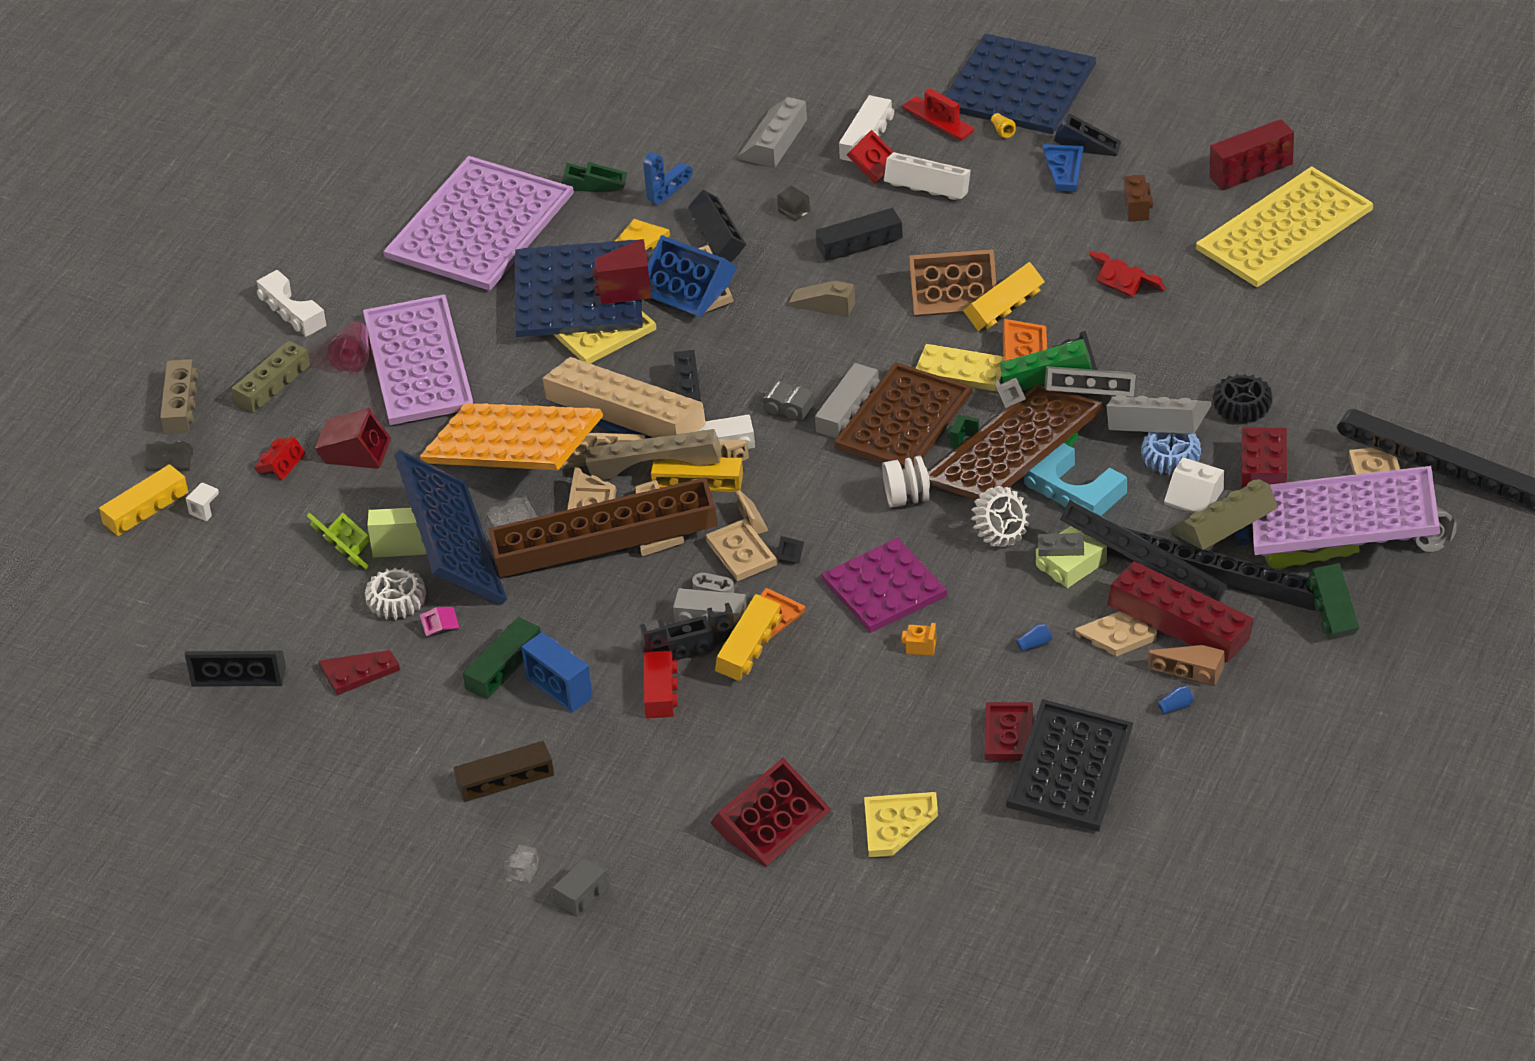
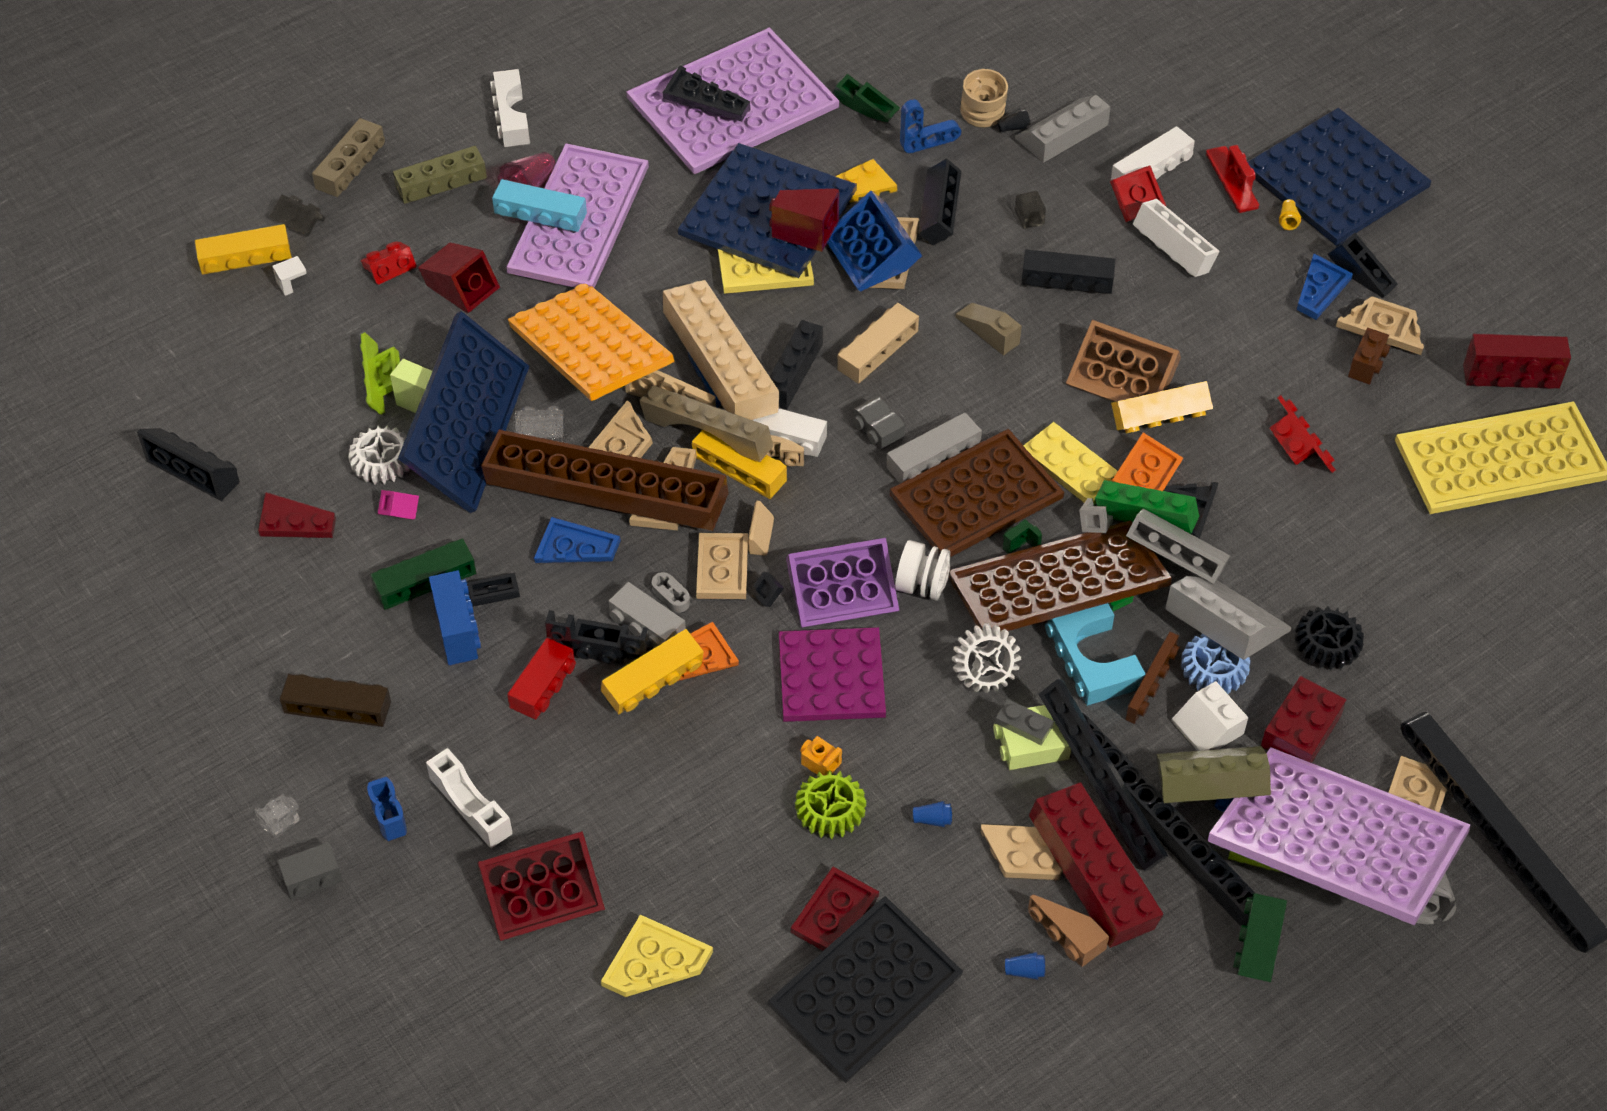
camera: 25 degrees right, 10 degrees up
(383, 361) = (539, 205): none -> medium azure brick
(458, 226) = (694, 92): none -> black wing
(577, 643) = (493, 593): none -> black tile
(610, 585) = (575, 543): none -> blue wing
(610, 818) = (387, 808): none -> blue brick
(644, 778) = (483, 816): none -> white arch
(695, 136) = (984, 97): none -> tan wheel
(731, 144) = (1015, 121): none -> black cone
(743, 346) = (877, 342): none -> tan brick
(845, 519) = (842, 582): none -> medium lavender slope
(952, 665) = (841, 814): none -> lime gear
(1132, 472) = (1150, 685): none -> reddish brown plate
(1133, 164) = (1386, 318): none -> tan wing

